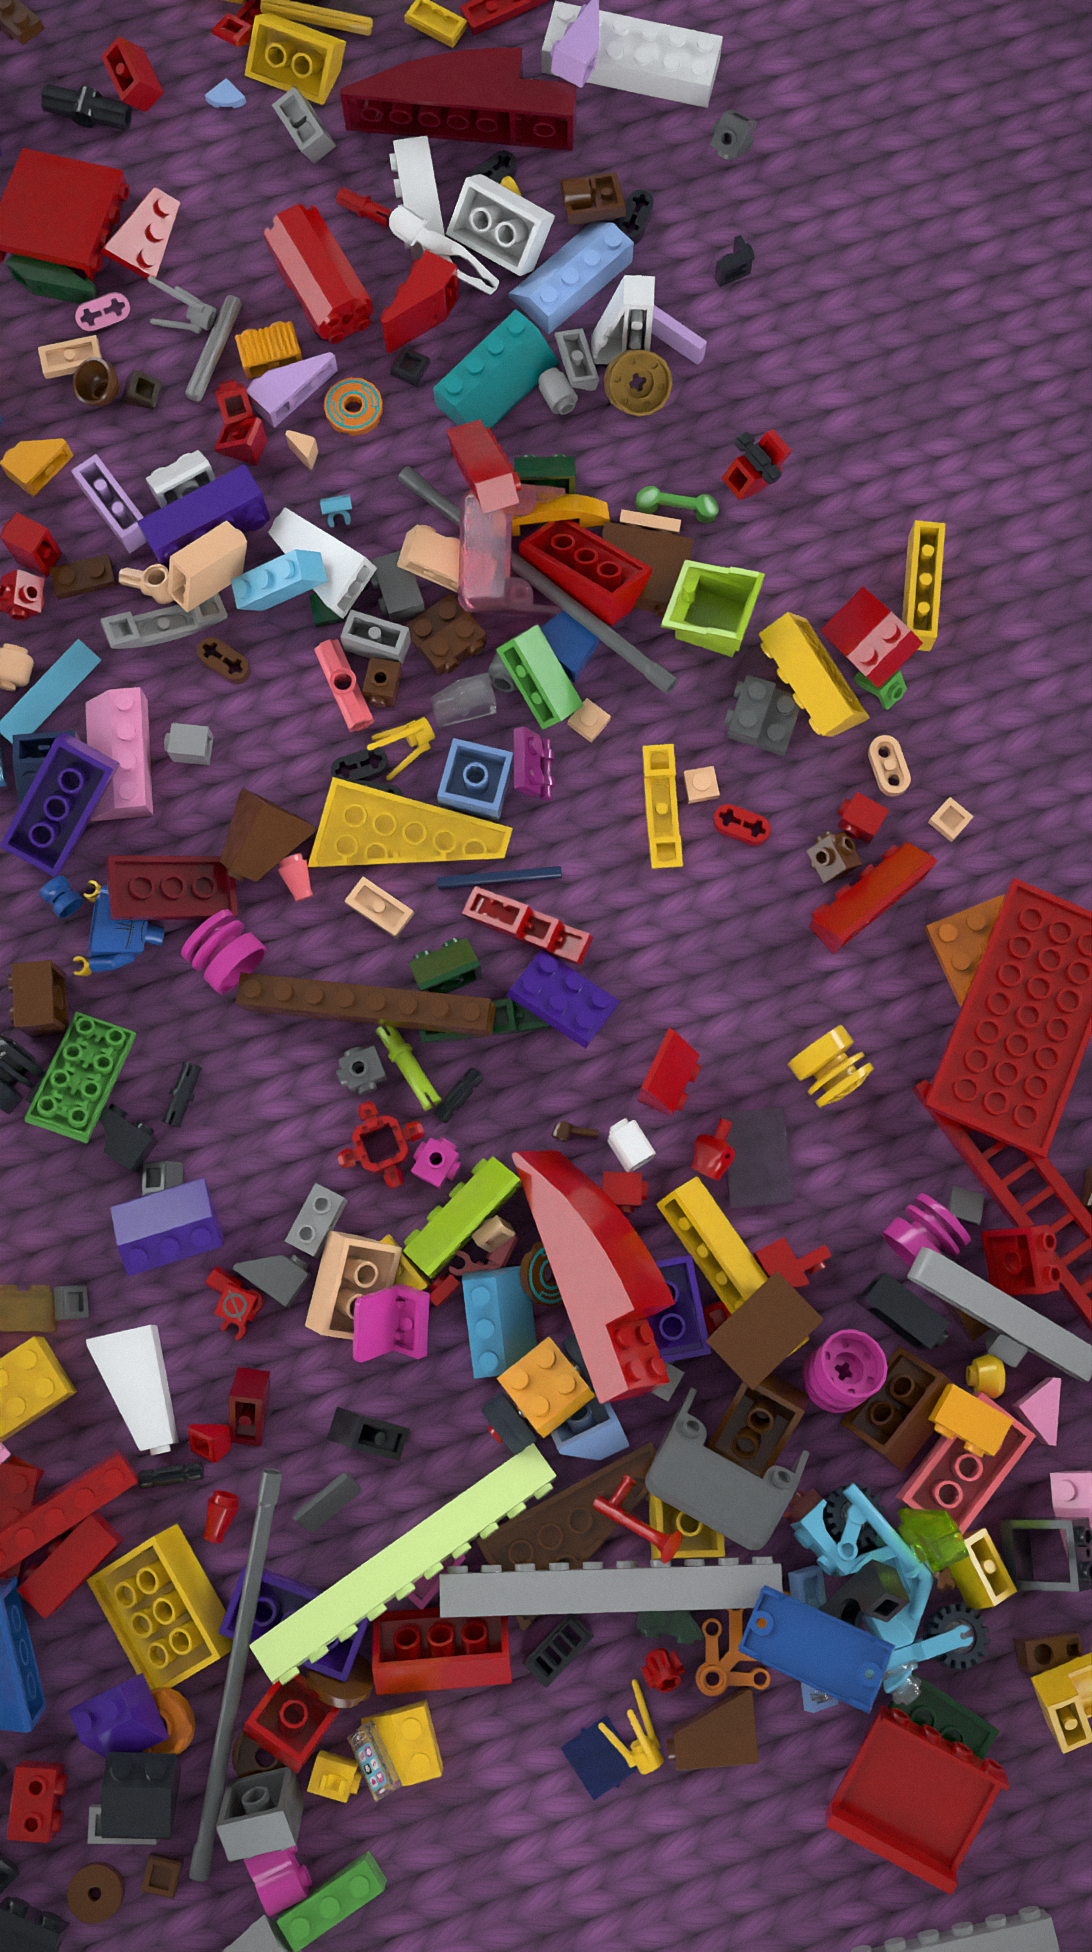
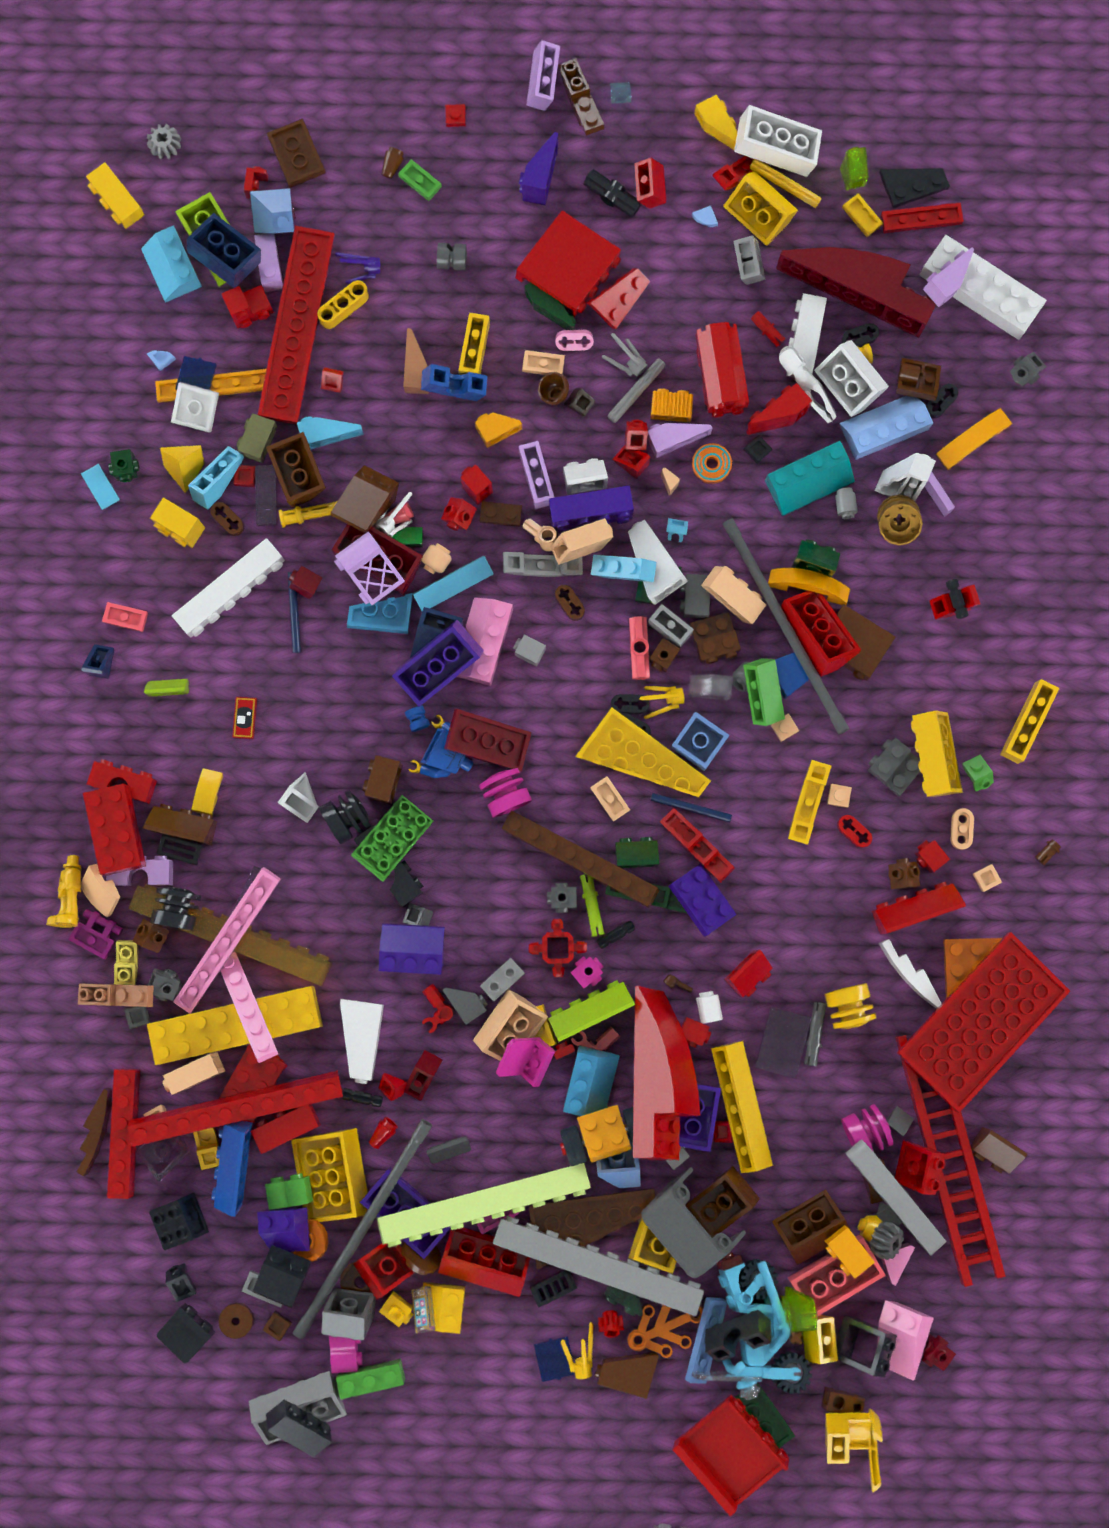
camera: 20 degrees right, 5 degrees up
(37, 1801) = (220, 1256): red brick -> none
(71, 1302) = (338, 972): dark grey tile -> none
(108, 1661) = (289, 1192): none -> bright green brick
(181, 1094) = (448, 870): black pin -> none
(235, 1304) = (436, 1012): red tile -> none
(260, 836) = (553, 727): reddish brown slope -> none
(296, 876) = (565, 760): coral cone -> none
(367, 1434) = (487, 1118): black slope -> none
(484, 466) = (780, 545): red brick -> none
(486, 557) = (762, 598): clear pink windscreen -> none
(493, 1233) = (606, 1029): light nougat plate -> none
(533, 764) = (739, 744): magenta plate -> none
(533, 1278) = (620, 1066): reddish brown tile -> none
(577, 359) = (867, 486): light grey slope -> none
(650, 522) = (878, 618): light nougat plate -> none
(666, 1543) = (616, 1219): red piece -> none
(695, 249) = (973, 438): none -> light orange slope
(704, 506) = (910, 615): bright green bar -> none
(713, 605) = (890, 686): lime piece -> none
(713, 1153) = (757, 1030): red piece -> none
(735, 265) = (991, 459): black bracket -> none
(764, 1330) = (747, 1151): reddish brown tile -> none
(780, 1258) = (773, 1116): red brick -> none
(797, 1128) = (815, 1033): none -> dark grey pin
(816, 1648) = (706, 1348): blue piece -> none
(844, 1371) = (785, 1193): dark pink wheel -> none
(871, 637) = (982, 743): red slope -> none
(904, 1312) = (835, 1172): black window -> none
(909, 997) = (915, 979): none -> white slope
(1017, 1383) = (886, 1240): none -> dark grey gear
(1019, 754) = (1048, 852): none -> reddish brown pin

